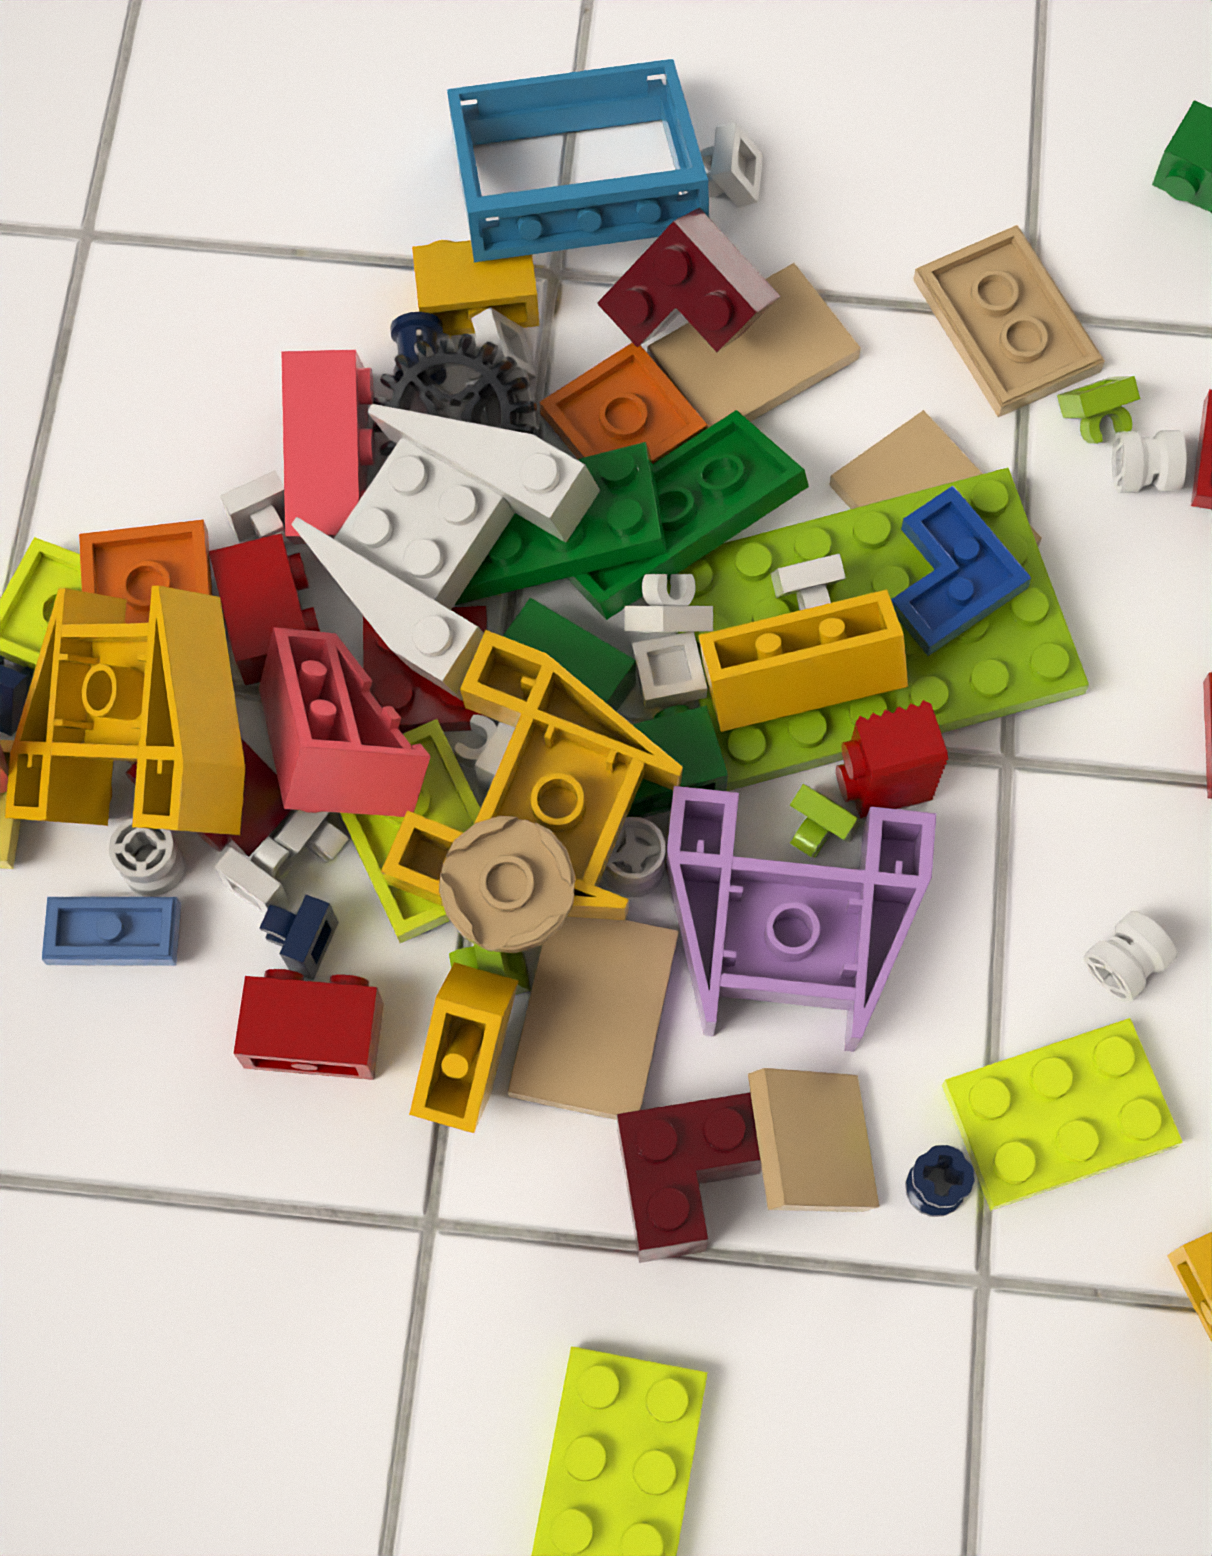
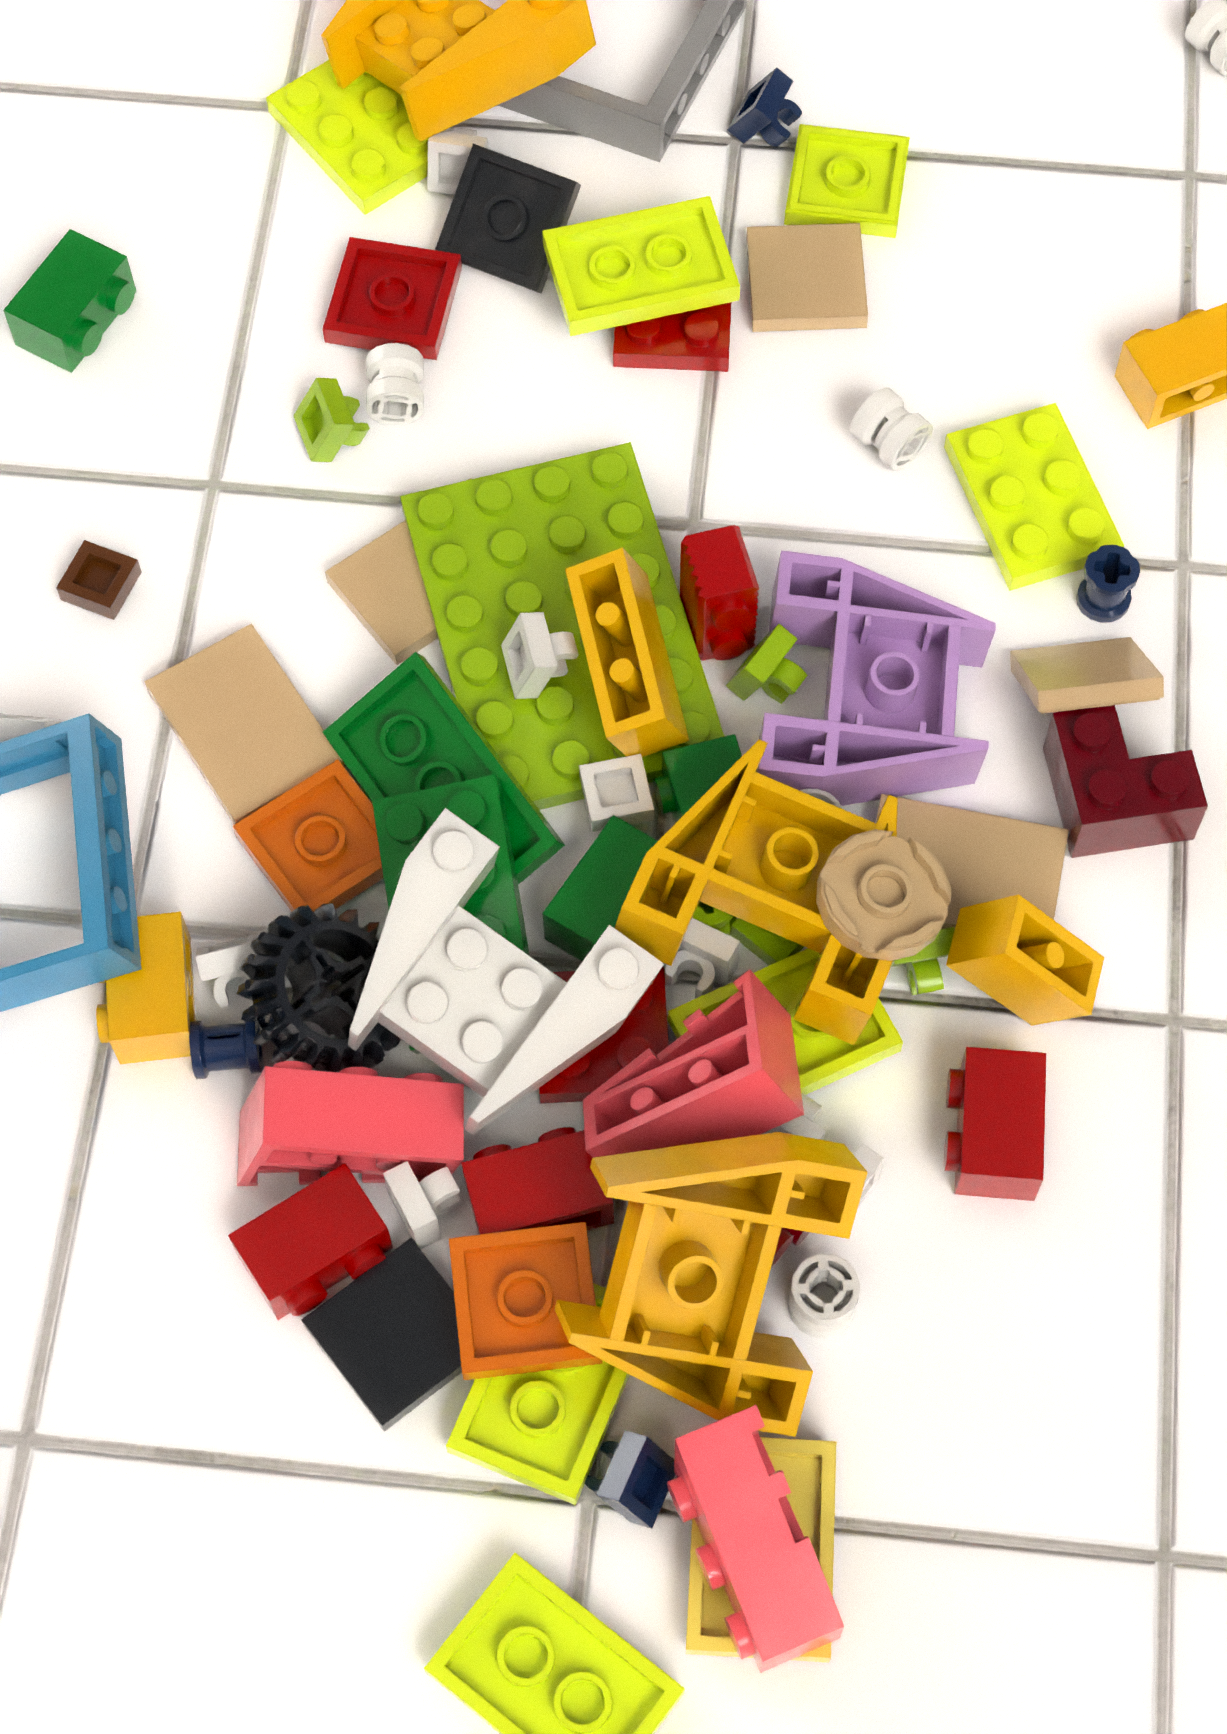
camera: 90 degrees left, 5 degrees down
(111, 931) = (904, 1331): medium blue plate -> none
(146, 487) = (391, 1334): none -> black tile
(225, 423) = (312, 1243): none -> red brick
(303, 935) = (904, 1133): dark blue tile -> none
(671, 610) = (559, 785): white tile -> none
(694, 274) = (178, 756): dark red brick -> none
(904, 217) = (99, 579): none -> reddish brown plate
(969, 577) = (520, 517): blue plate -> none
(1008, 320) = (222, 499): tan tile -> none

